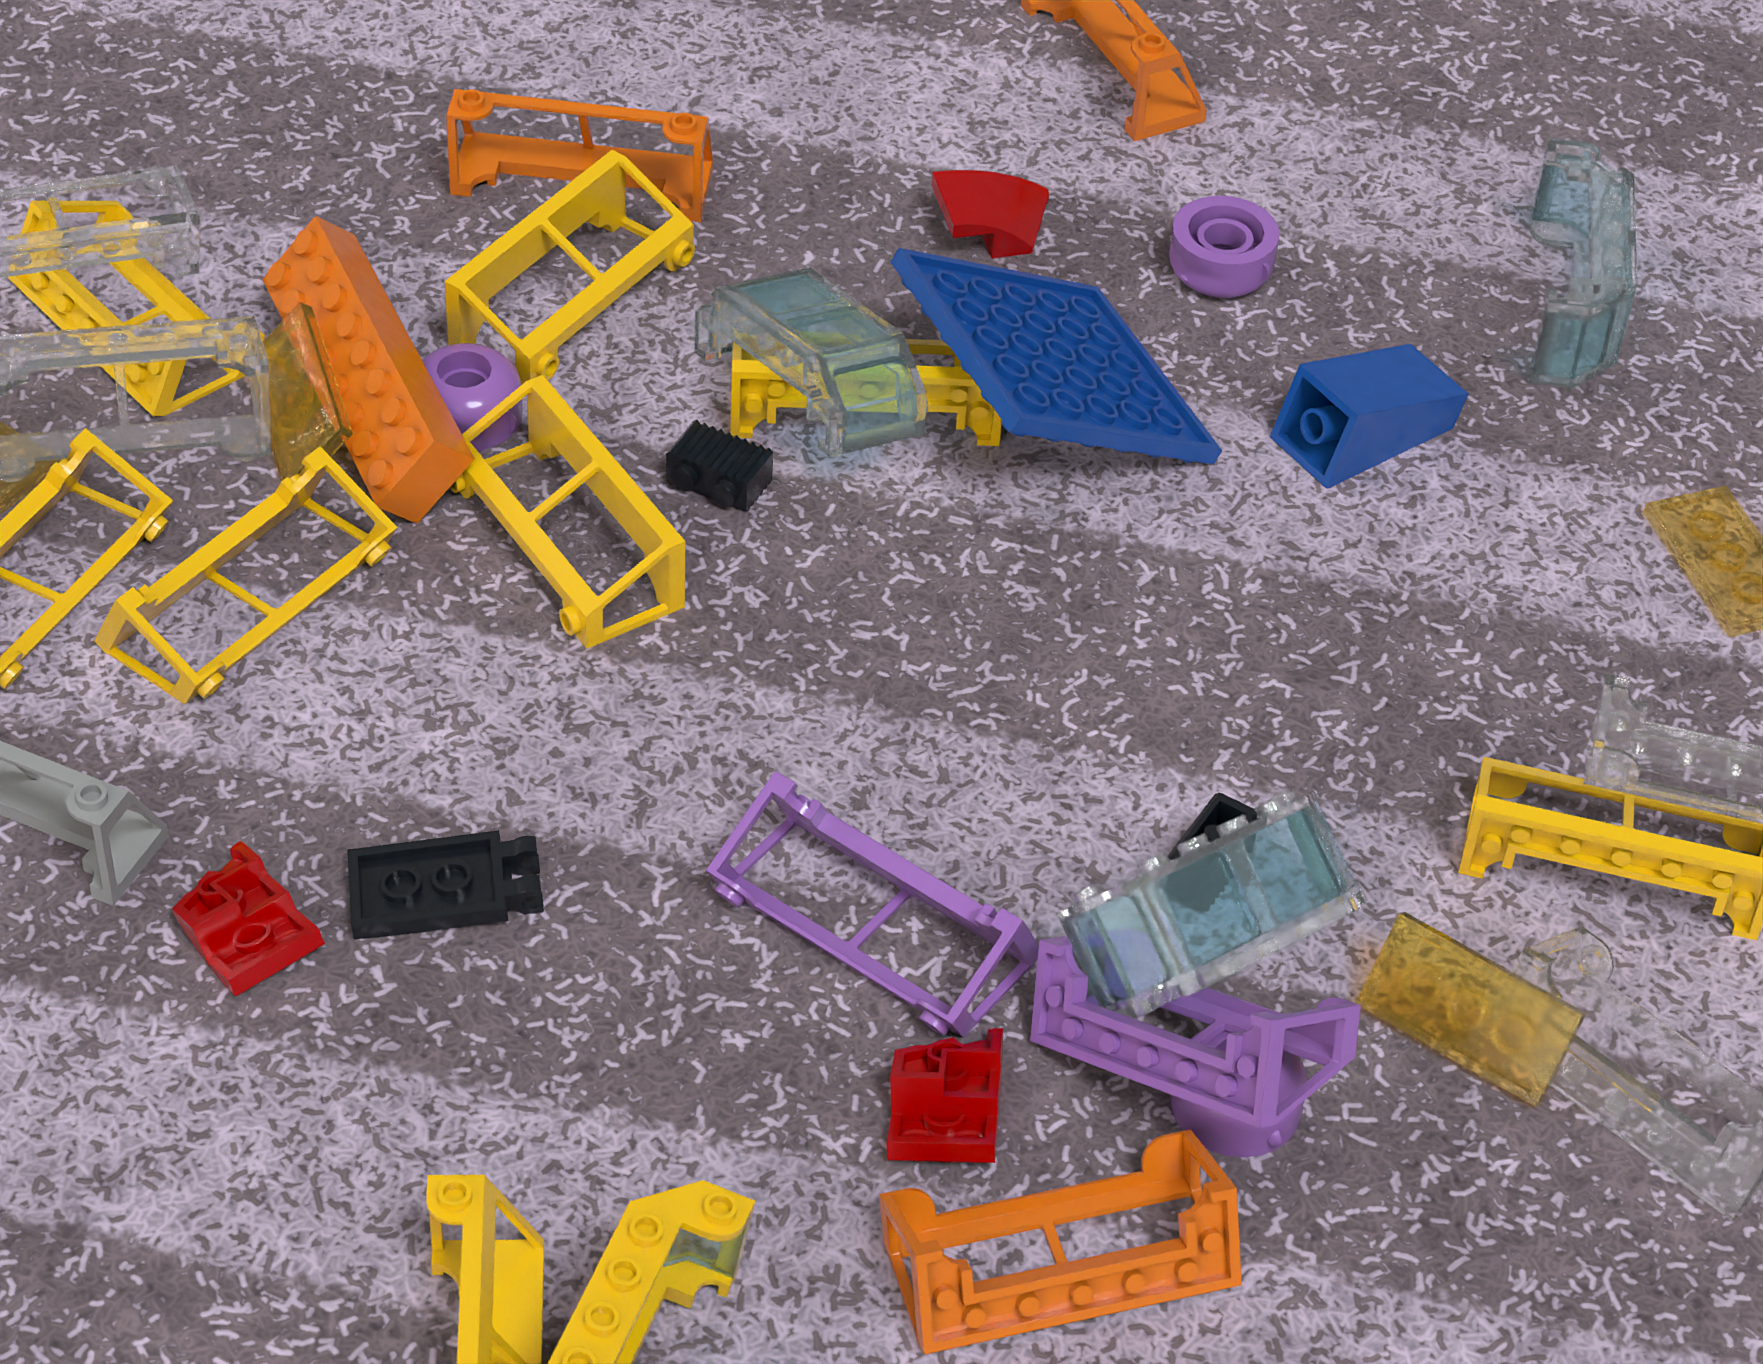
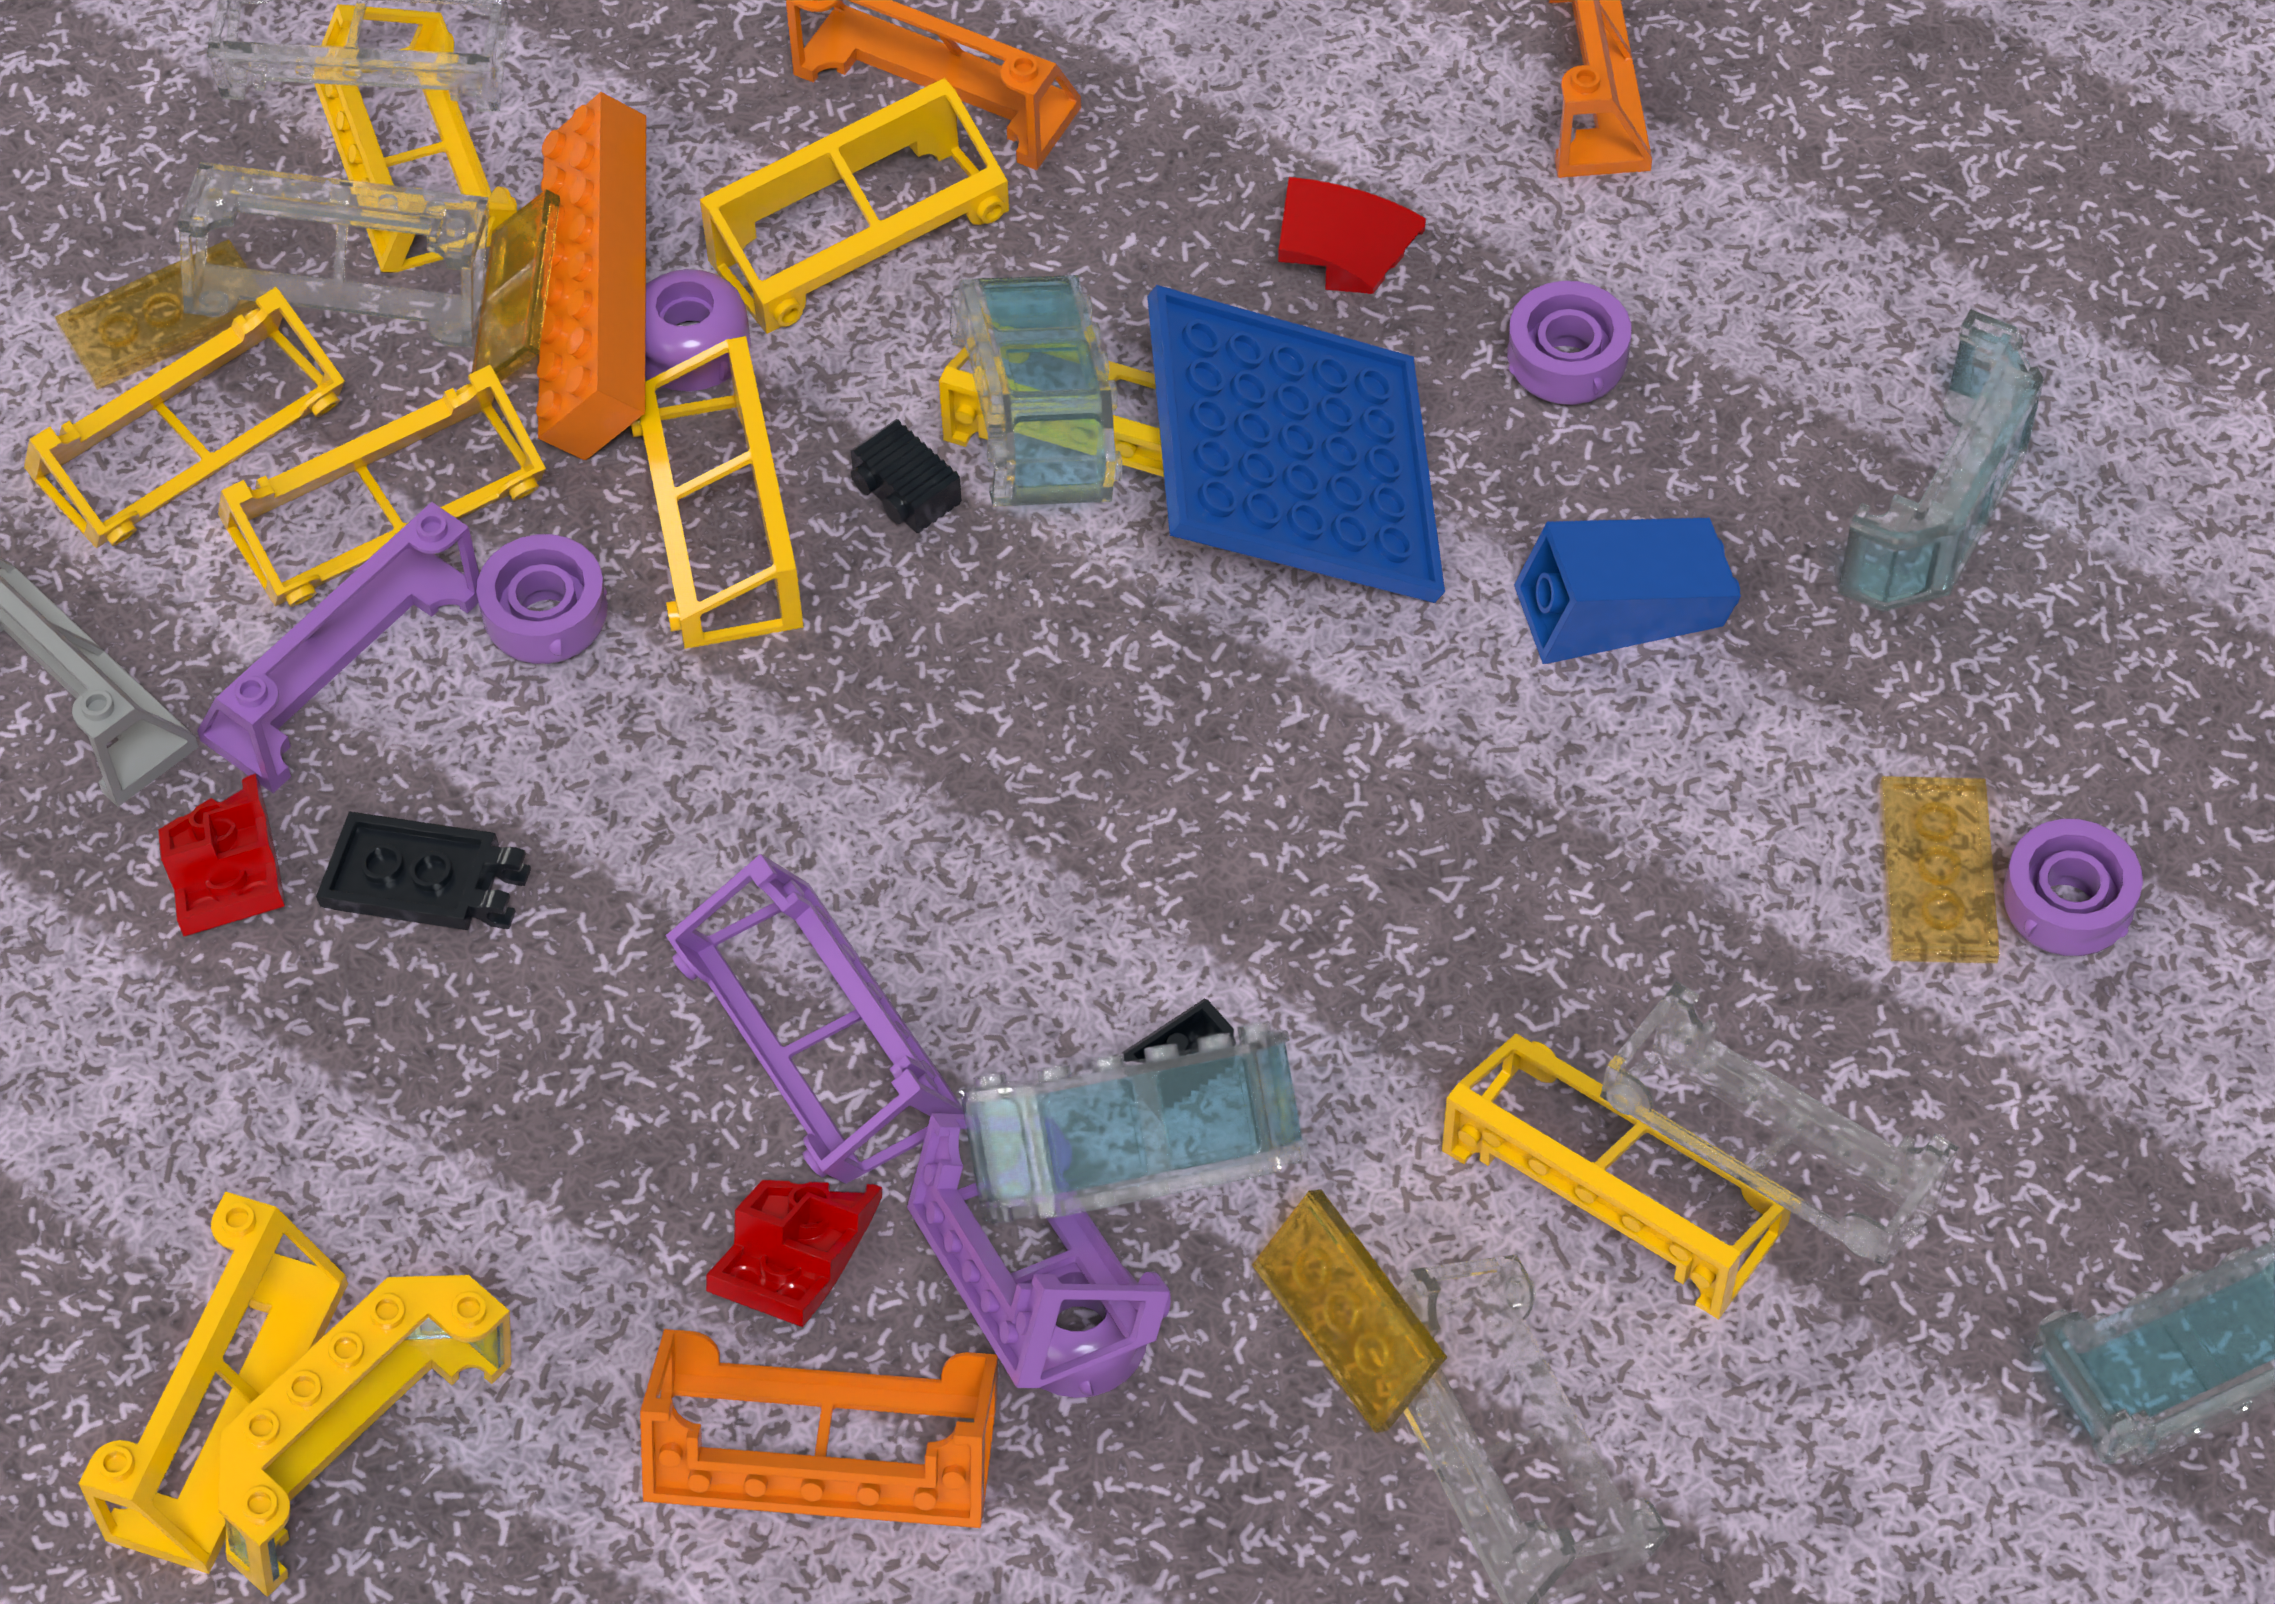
camera: 25 degrees right, 10 degrees up
(212, 800) = (401, 574): none -> medium lavender windscreen
(448, 630) = (535, 571): none -> medium lavender piece

